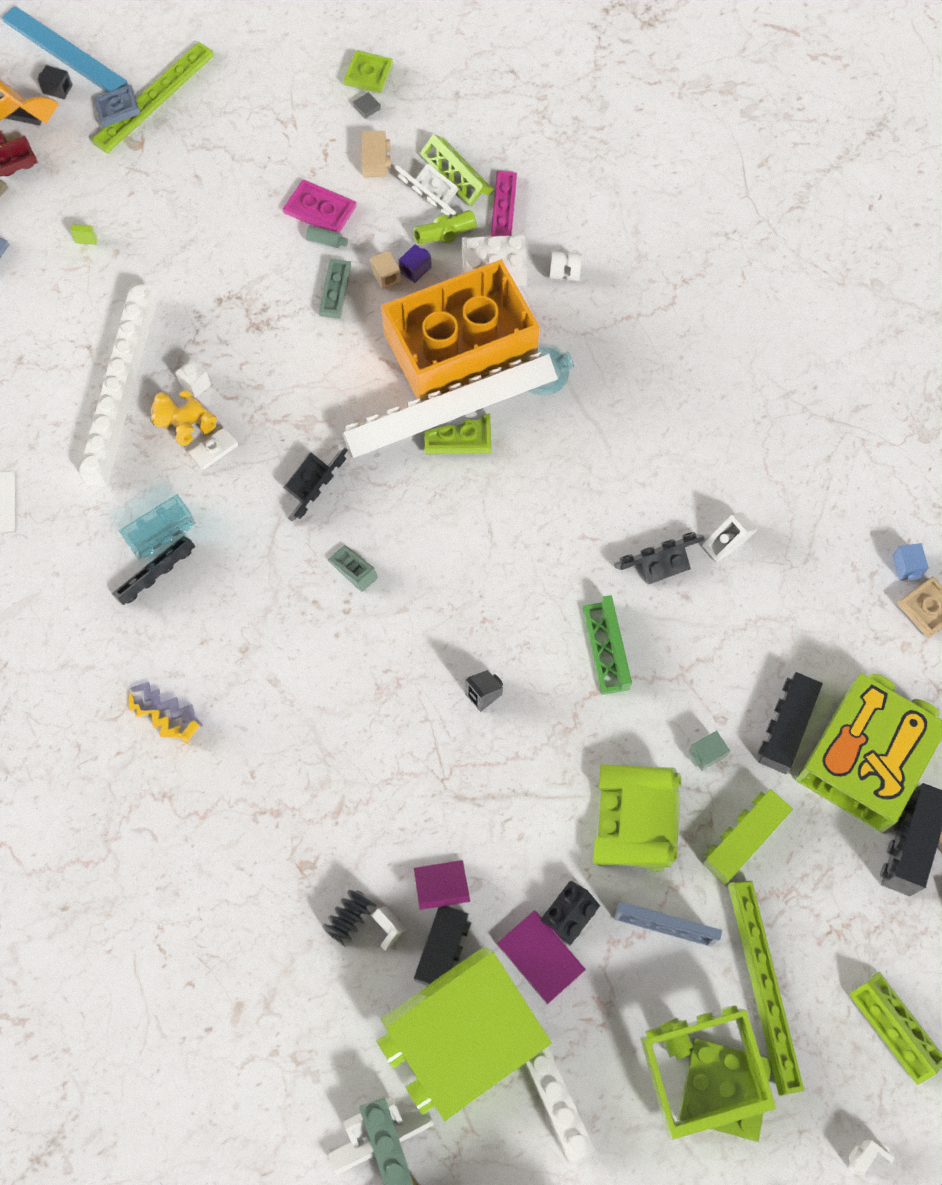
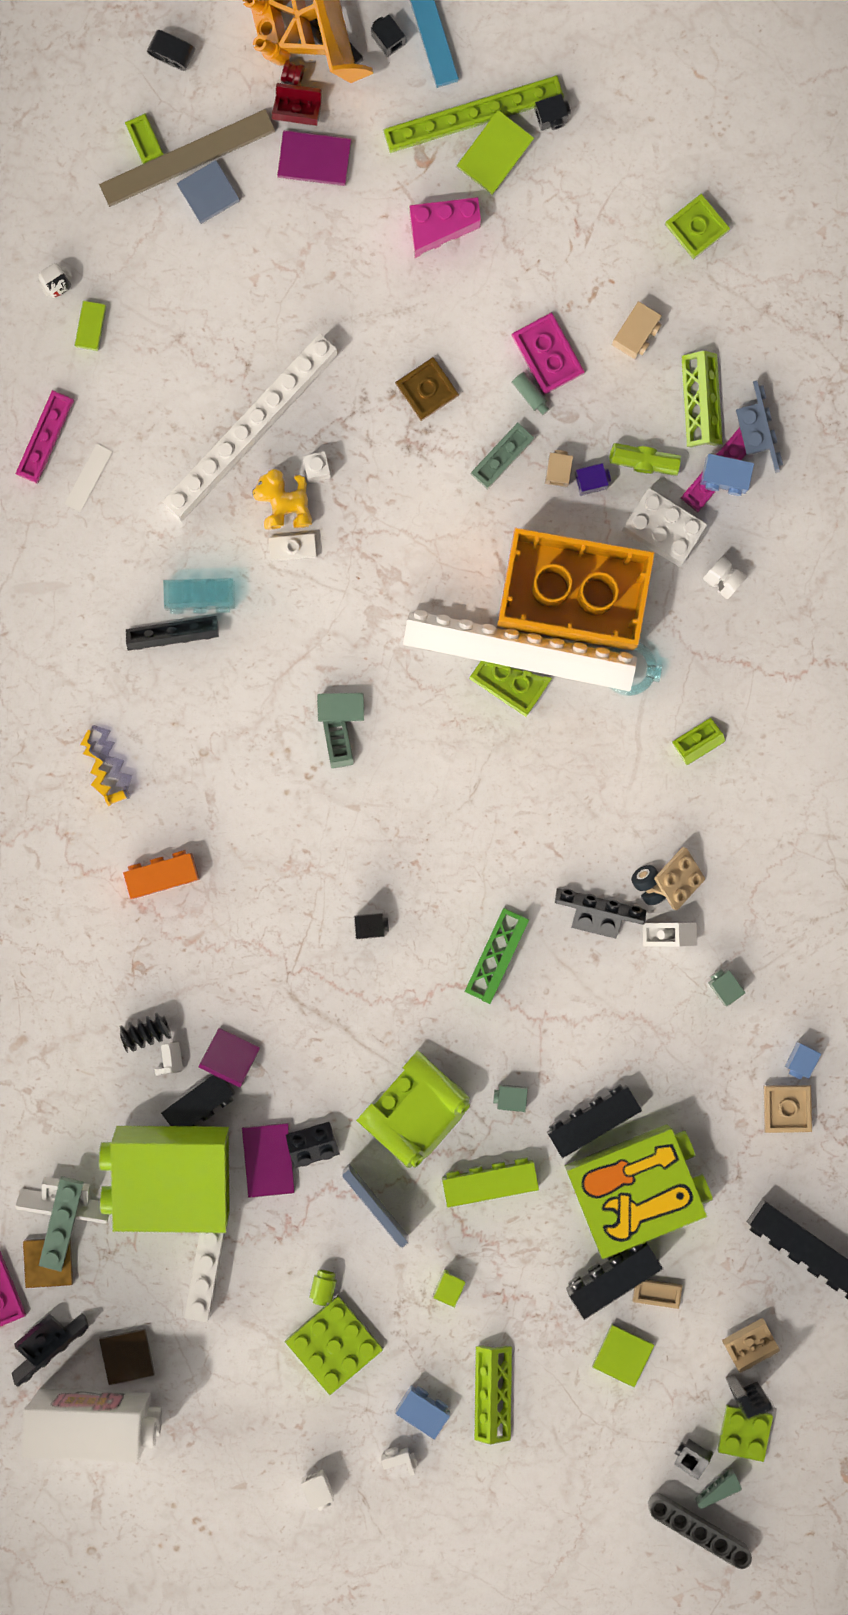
camera: 35 degrees right, 20 degrees up
(50, 185) = (314, 158): none -> magenta tile
(84, 234) = (312, 240): lime tile -> none
(117, 106) = (430, 106): sand blue tile -> none
(177, 167) = (441, 222): none -> dark pink wedge
(186, 107) = (495, 152): none -> lime tile
(210, 62) = (552, 112): none -> black brick
(243, 281) = (427, 389): none -> pearl gold tile
(272, 769) = (160, 874): none -> orange brick
(309, 478) = (354, 637): black bracket -> none
(335, 537) = (340, 707): none -> sand green slope
(366, 105) = (669, 264): dark grey tile -> none
(434, 185) = (666, 406): white bracket -> none
(511, 163) = (755, 428): none -> sand blue bracket
(512, 198) = (726, 474): none -> medium blue brick
(637, 389) = (699, 741): none -> lime slope
(704, 492) = (674, 882): none -> tan plate
(722, 1115) = (314, 1362): lime window -> none
(766, 988) = (418, 1297): lime tile -> none
(786, 955) = (448, 1289): none -> lime panel
(805, 546) = (726, 987): none -> sand green brick
(853, 1091) = (423, 1412): none -> medium blue brick

